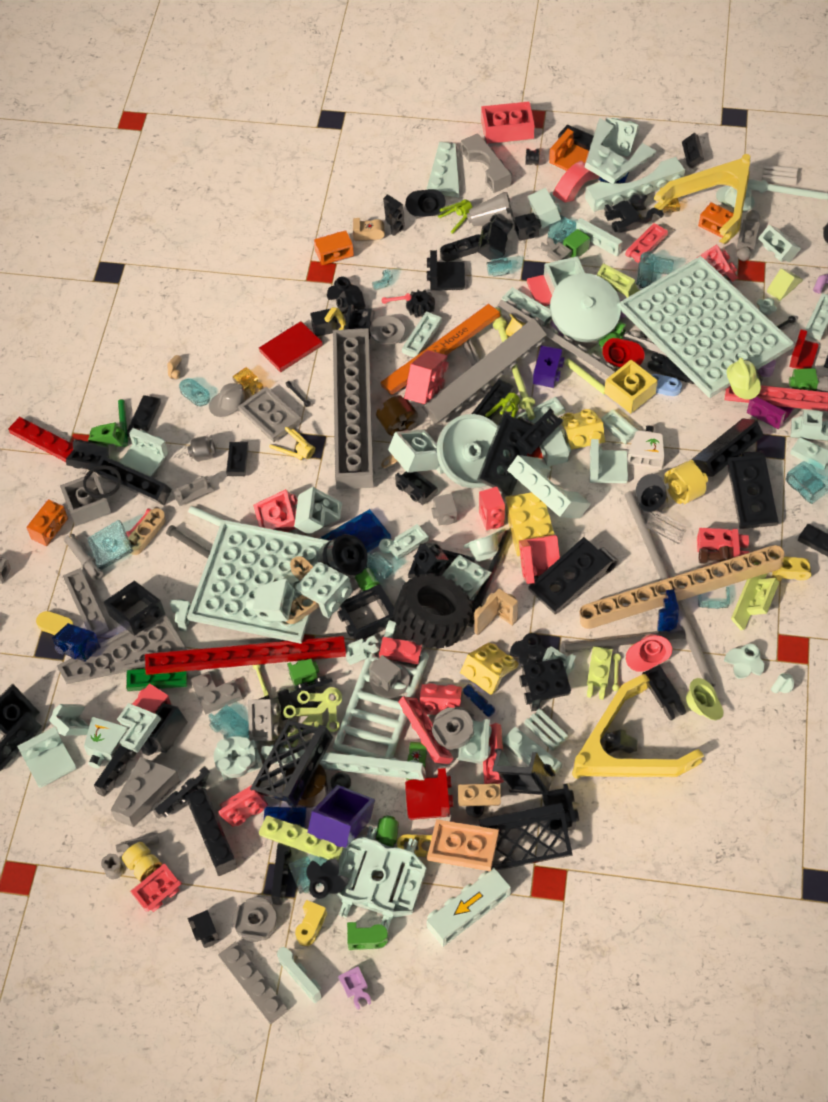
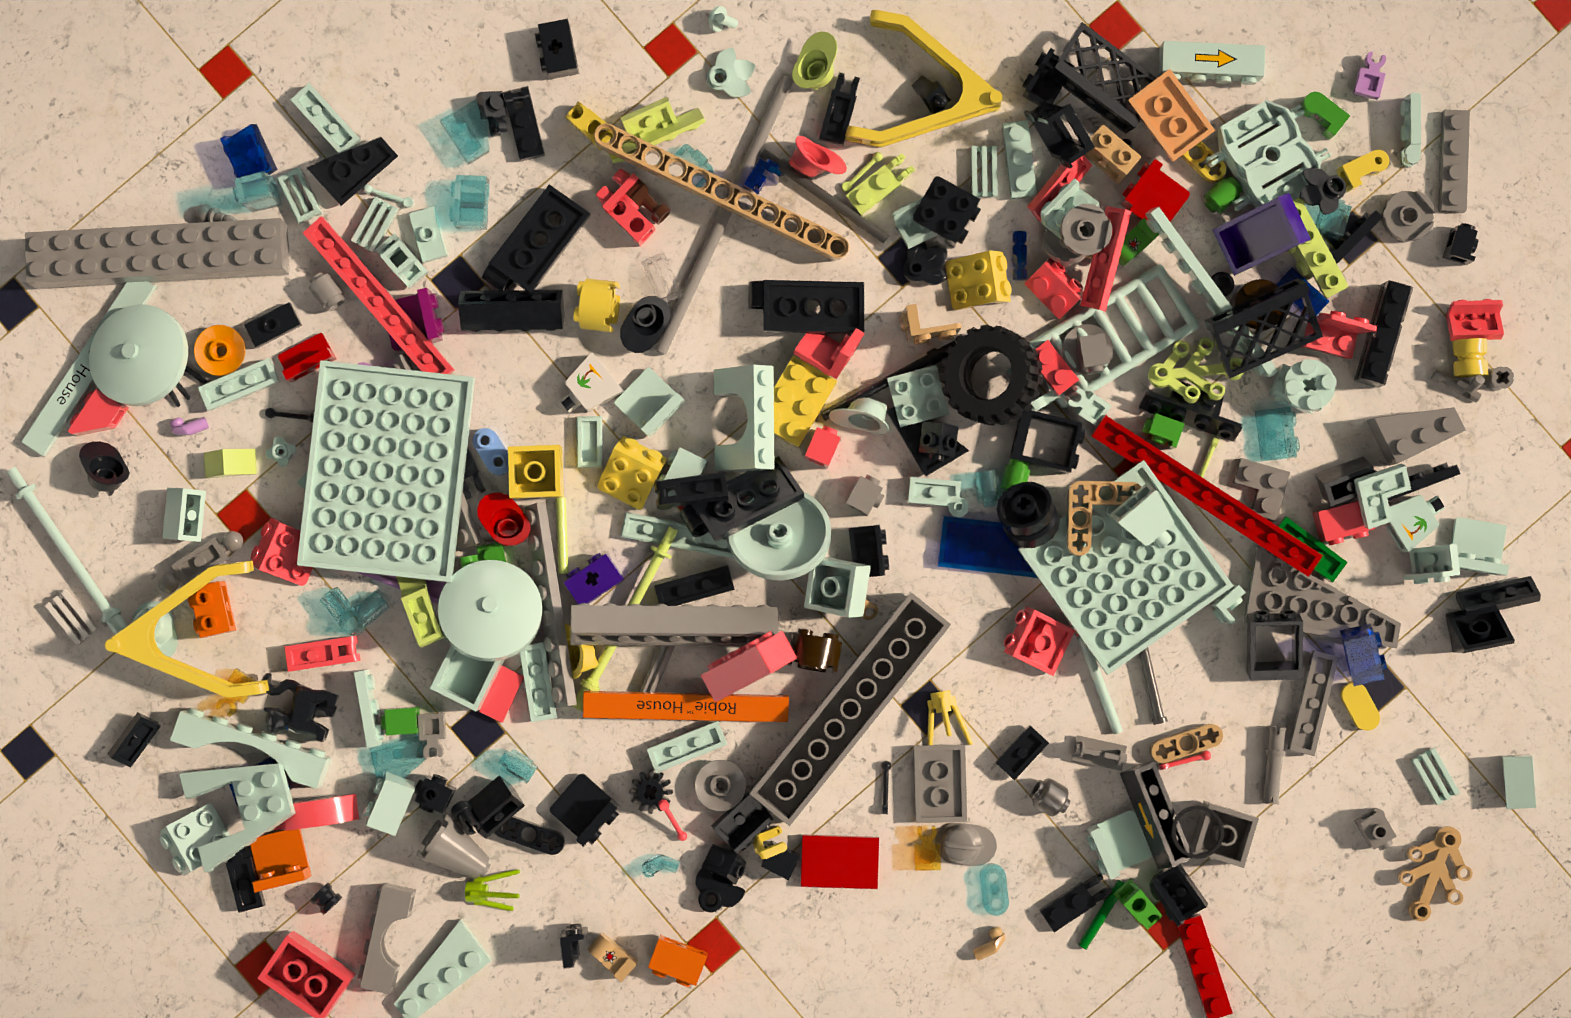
camera: 140 degrees left, 30 degrees up
(47, 522) = (1282, 839): orange brick -> none
(110, 544) = (1237, 755): clear light blue plate -> none
(166, 807) = (1380, 395): black wing -> none
(264, 719) = (1246, 404): light grey bracket -> none
(316, 510) = (1007, 603): light aqua brick -> none
(325, 587) = (1078, 492): light aqua bracket -> none
(425, 202) = (518, 932): black piece -> none
(509, 404) = (682, 561): lime plant -> none
(743, 379) = (421, 363): yellowish green piece -> none
(804, 379) = (347, 320): bright green brick -> none

